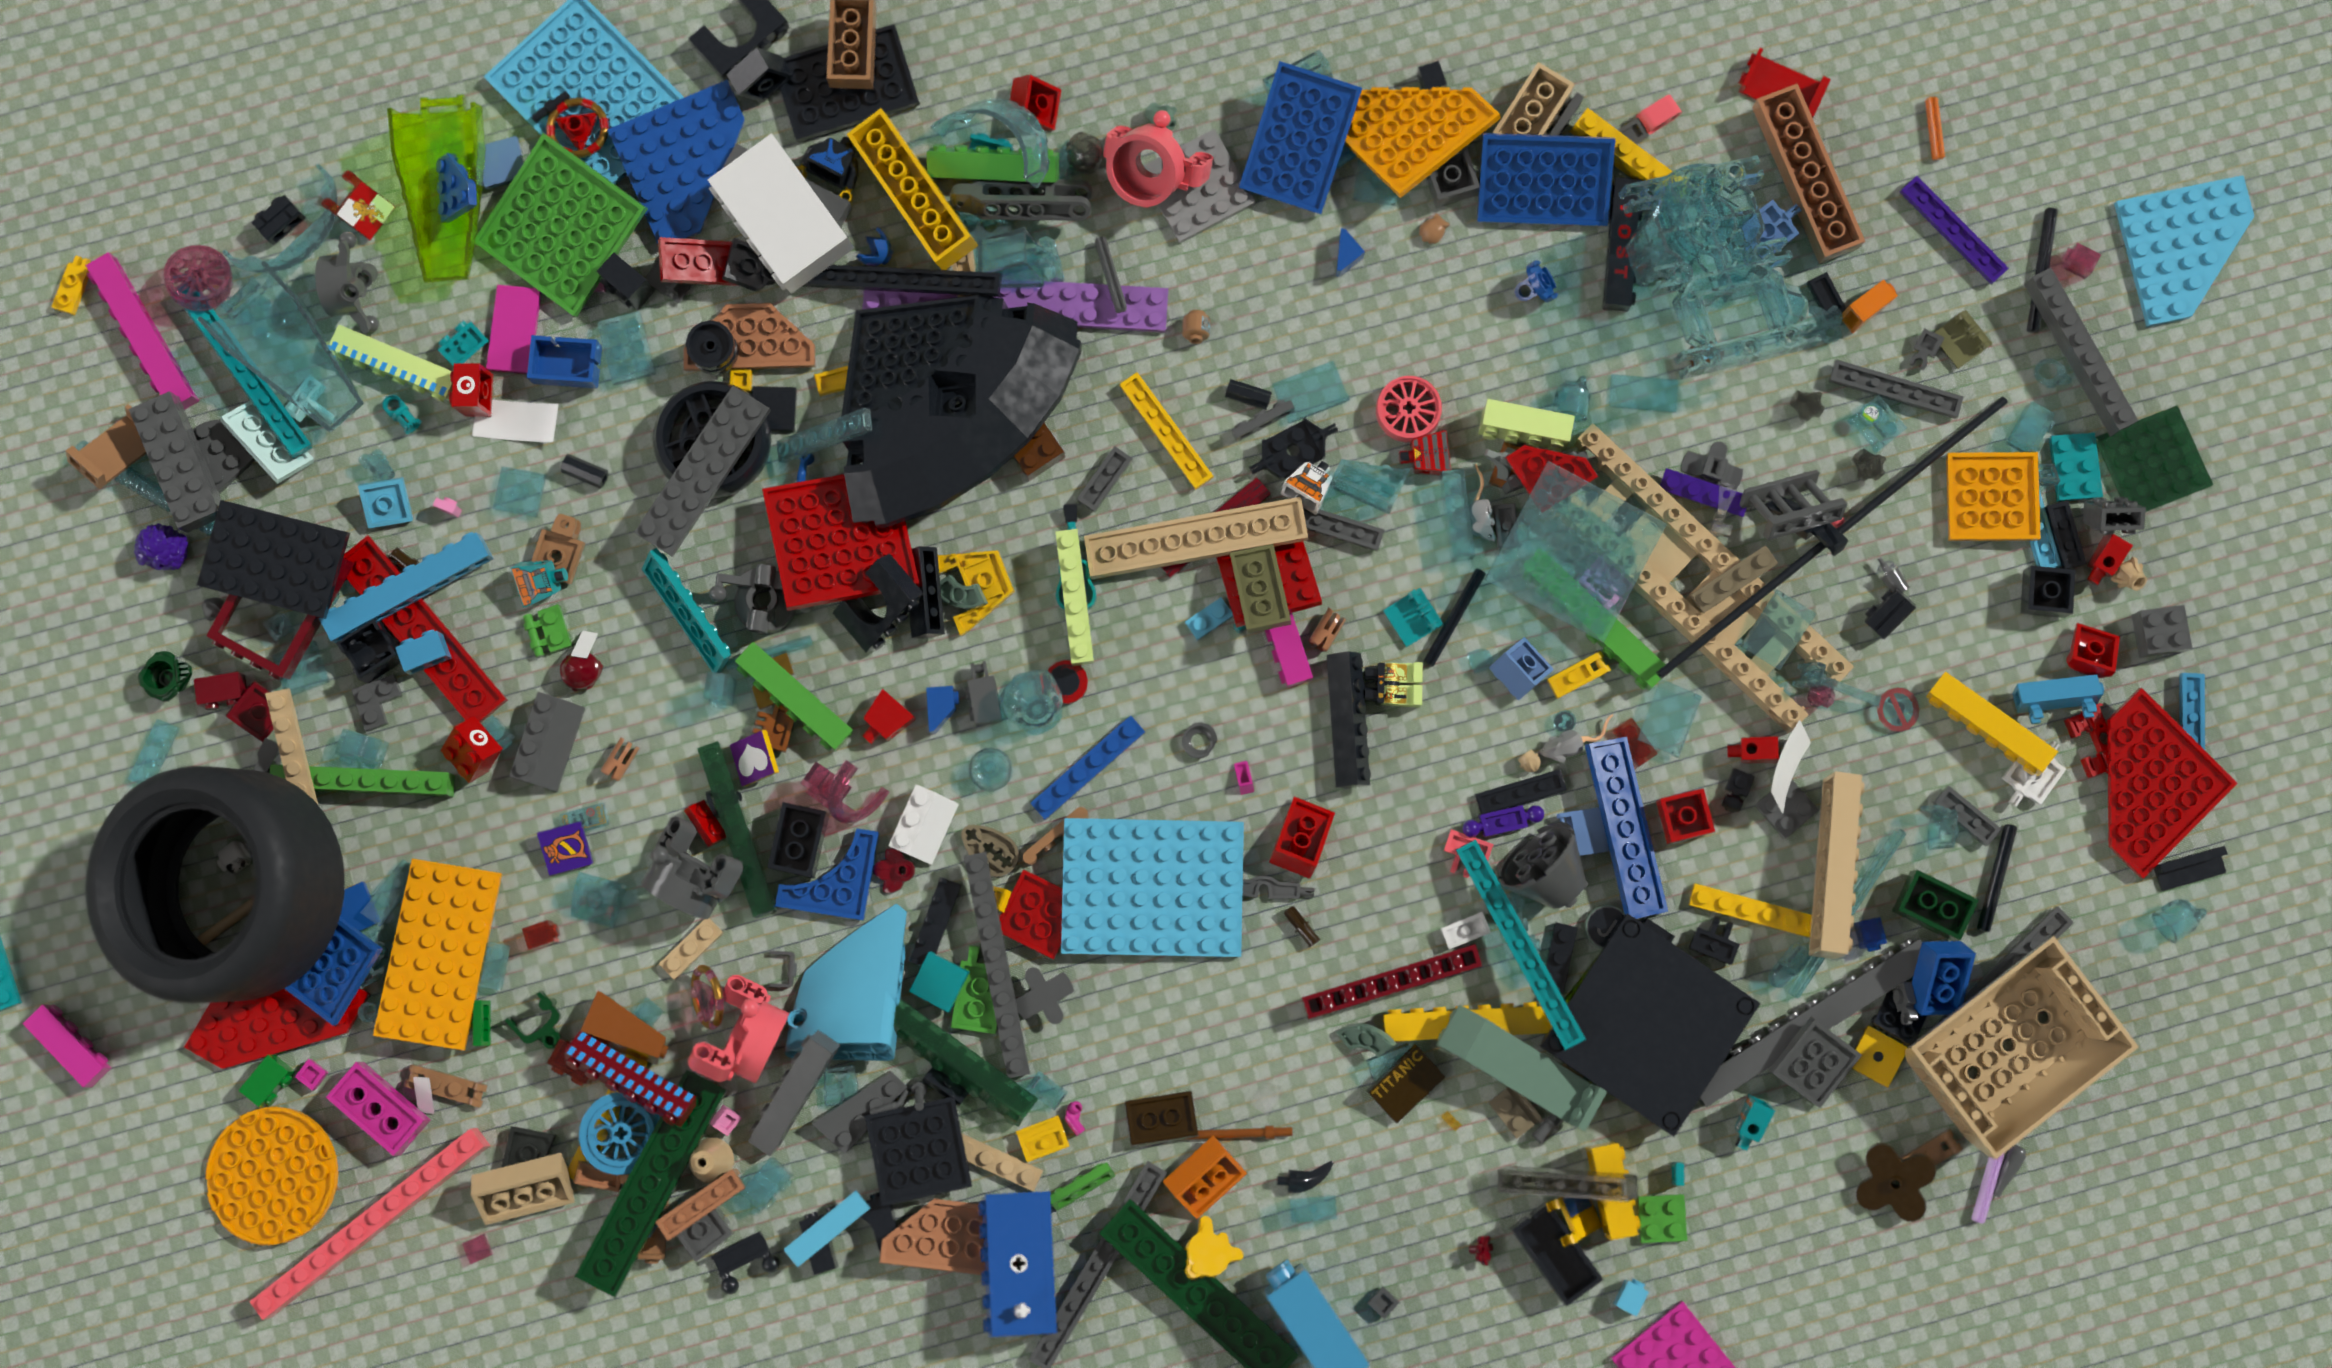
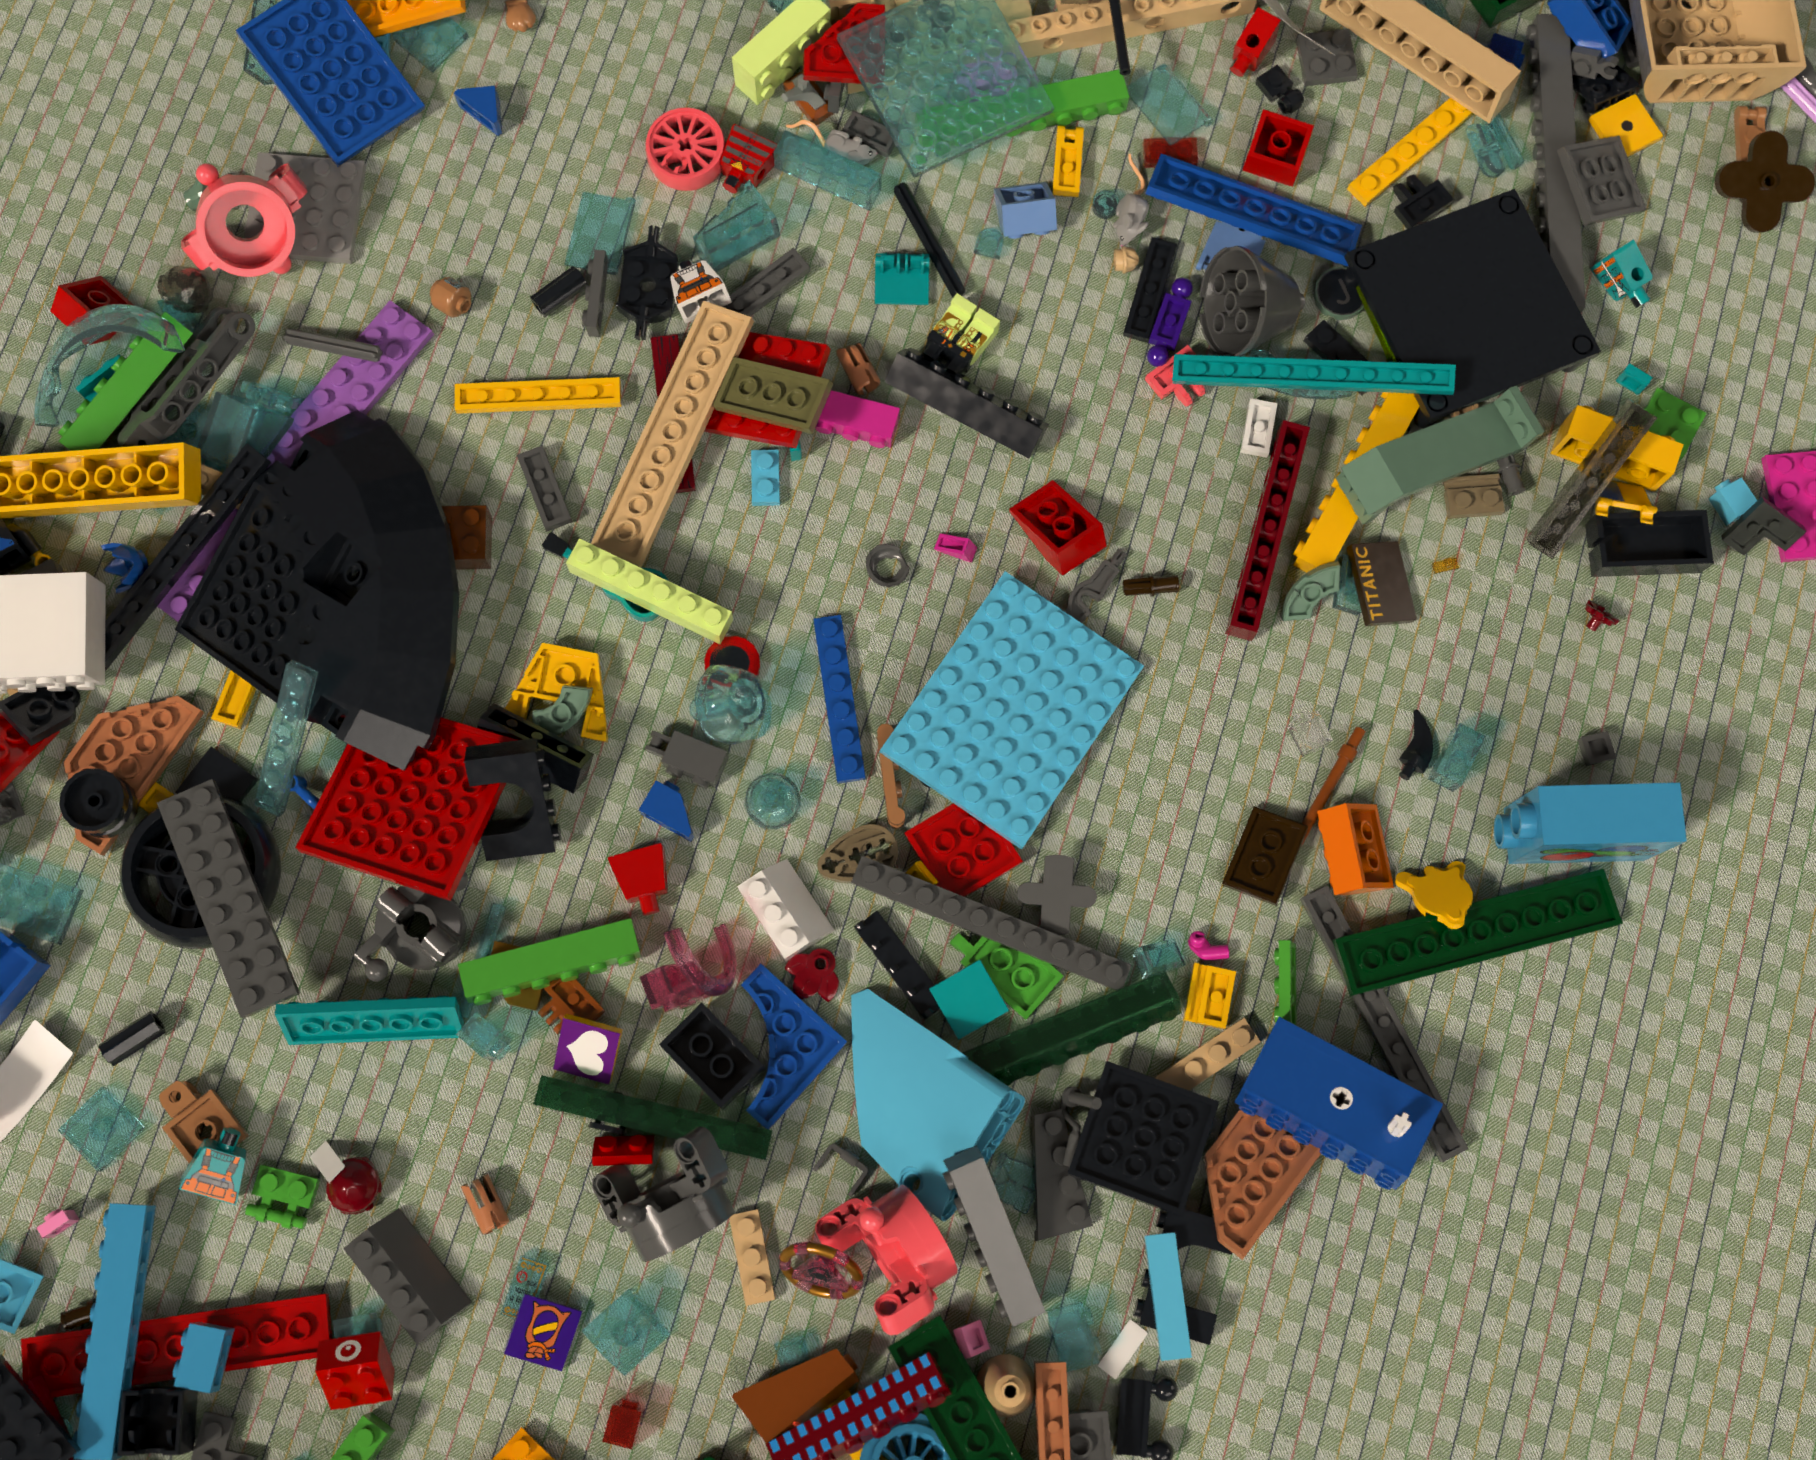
camera: 65 degrees left, 5 degrees down
(780, 1221) = (1122, 1349): none -> white sticker
(941, 1083) = (1086, 1065): black plate -> none
(1624, 1325) = (1760, 521): none -> pearl dark grey plate

